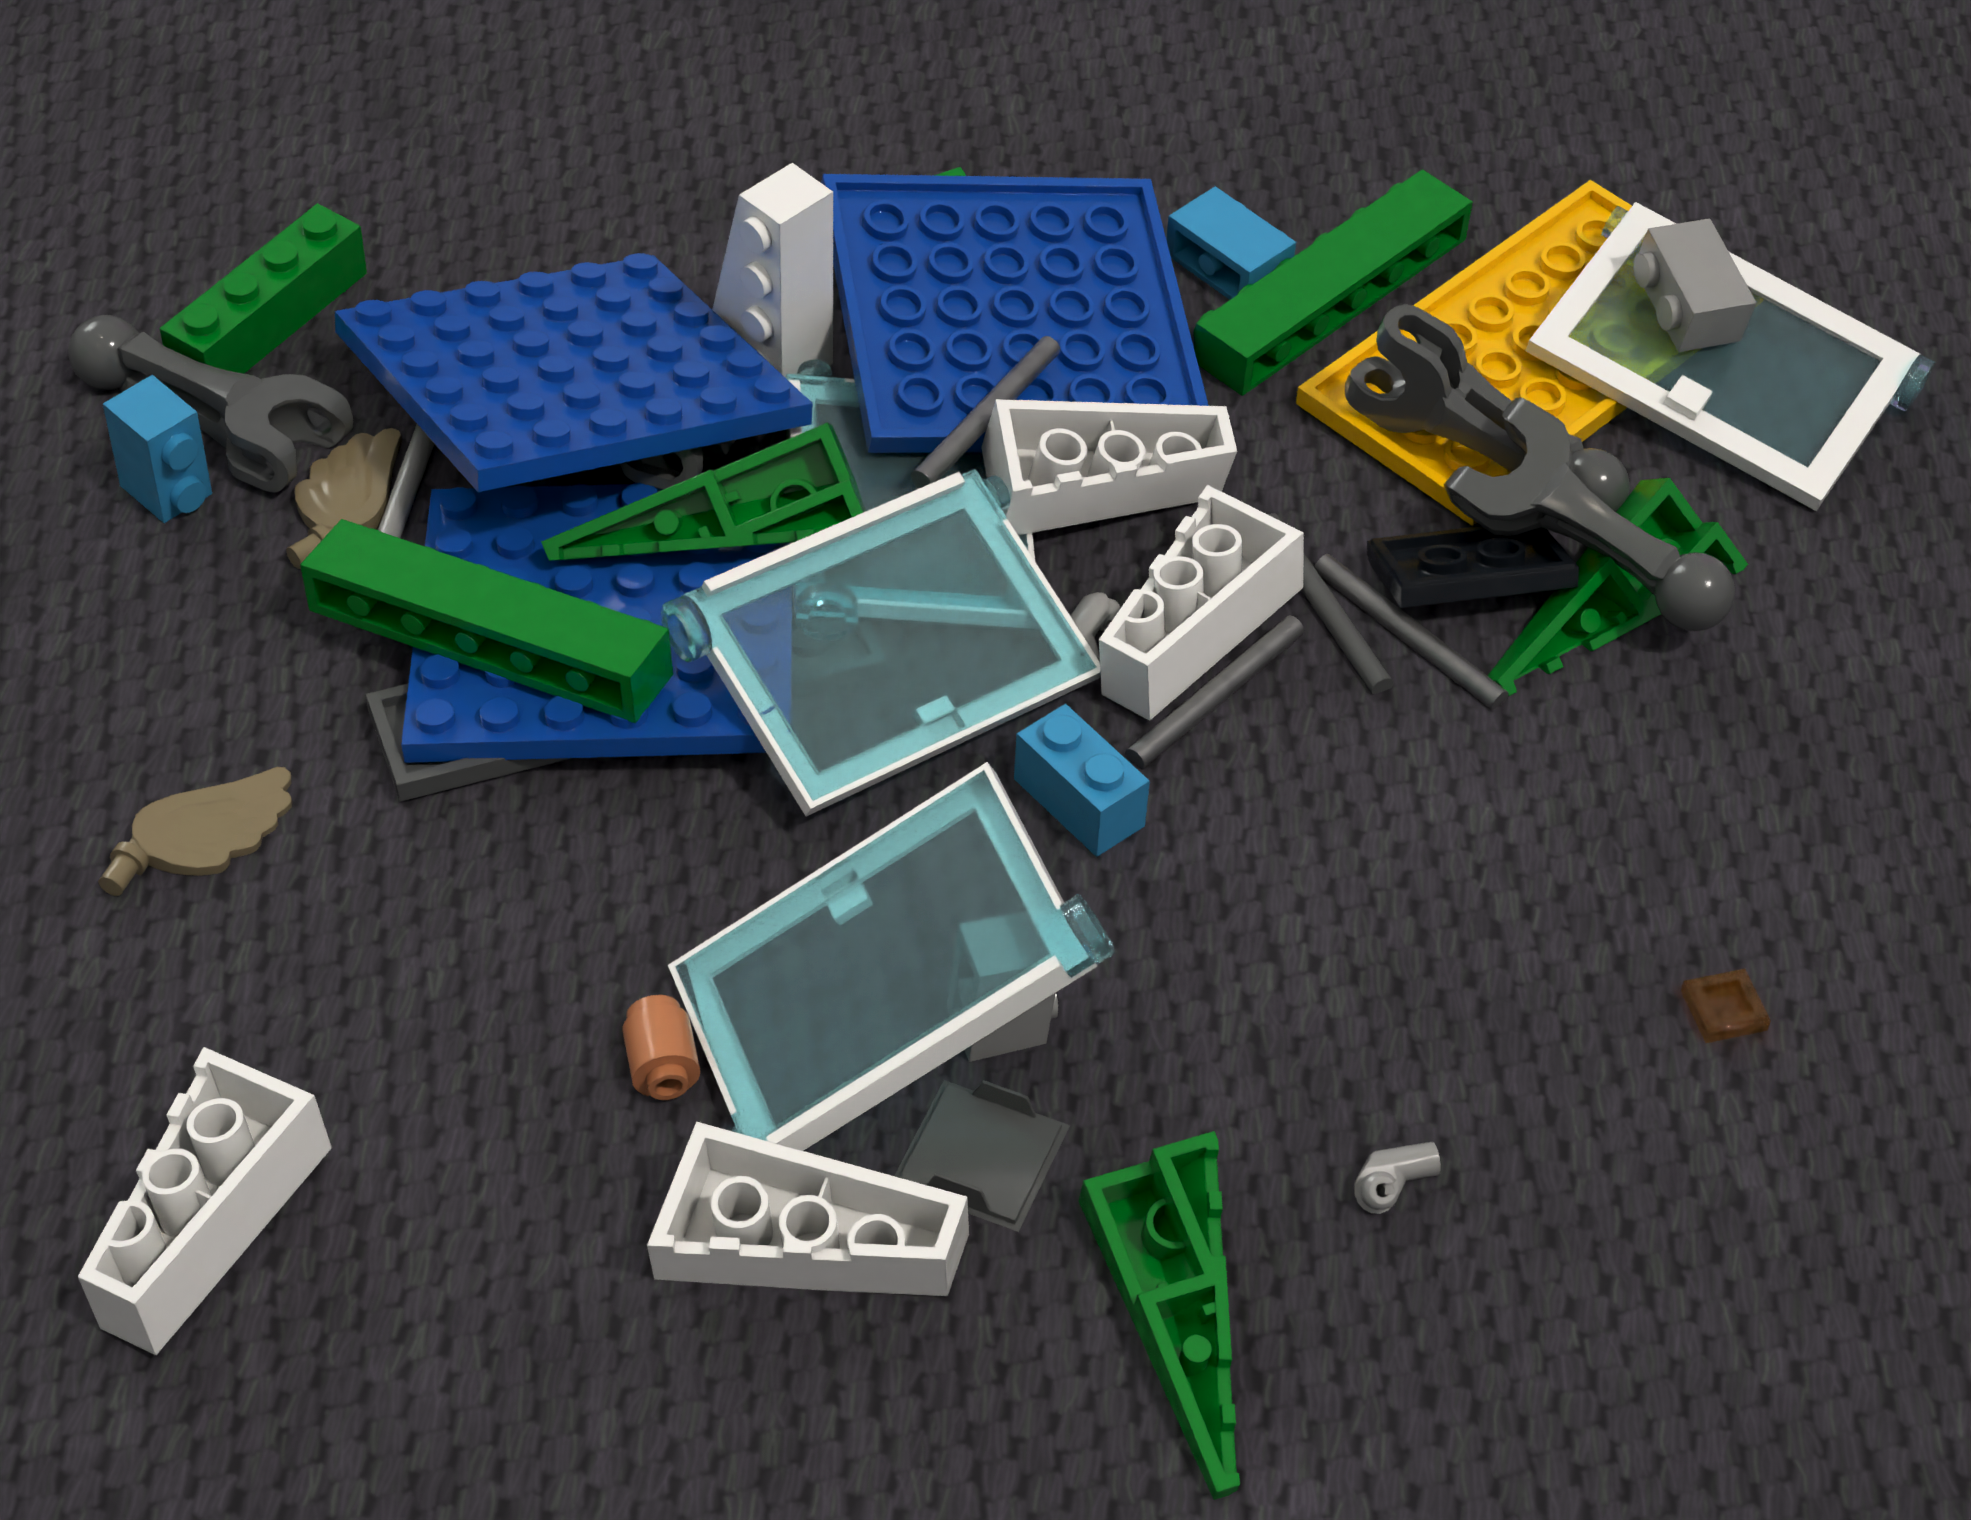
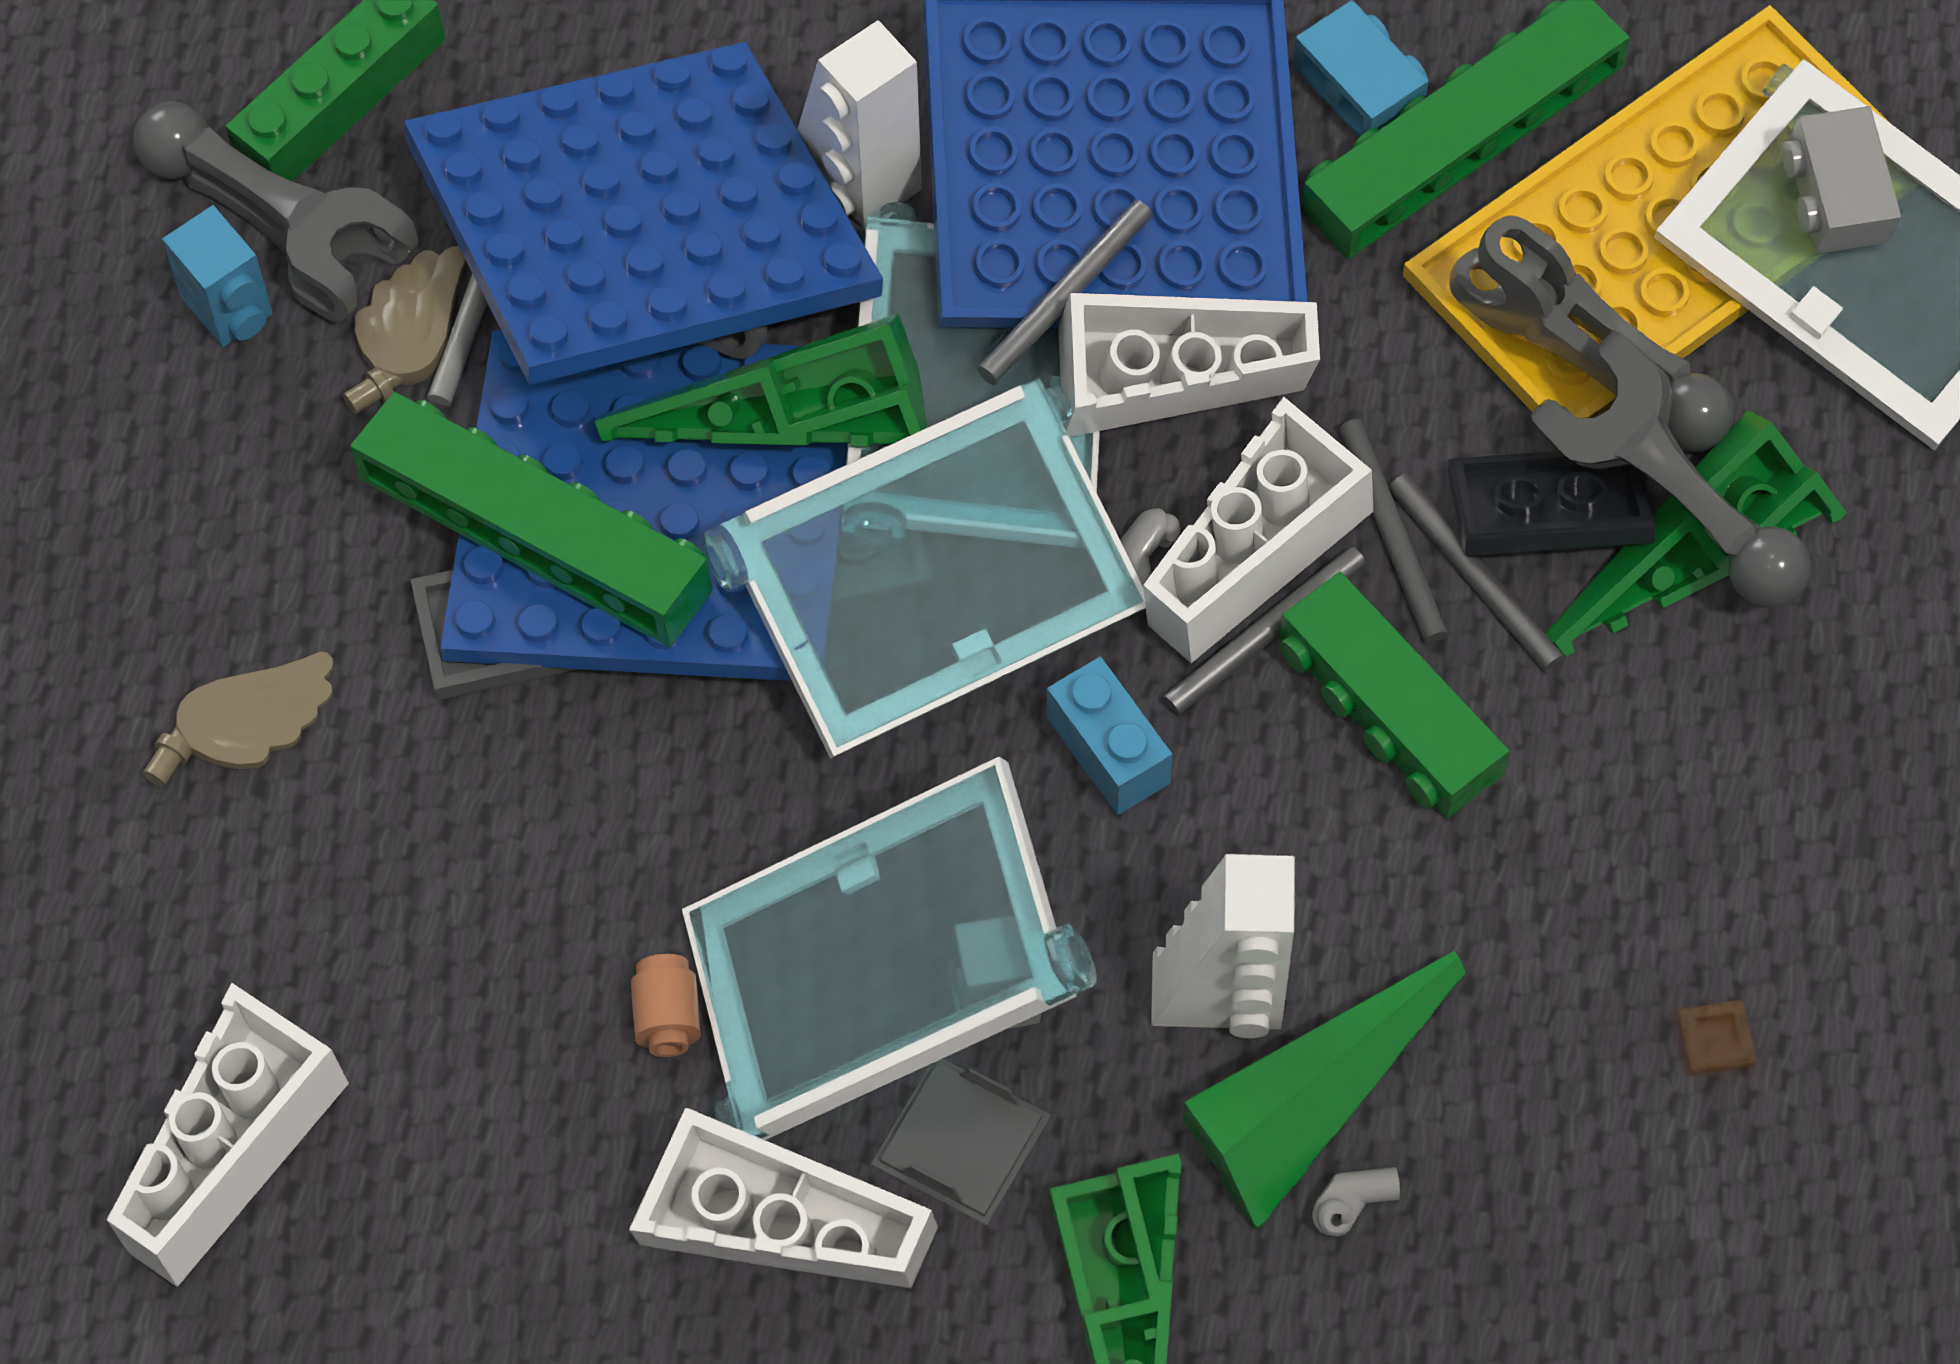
camera: 10 degrees right, 15 degrees up
(1246, 931) = (1231, 951): none -> white wedge
(1314, 1090) = (1286, 1108): none -> green wedge
(1353, 731) = (1392, 696): none -> green brick

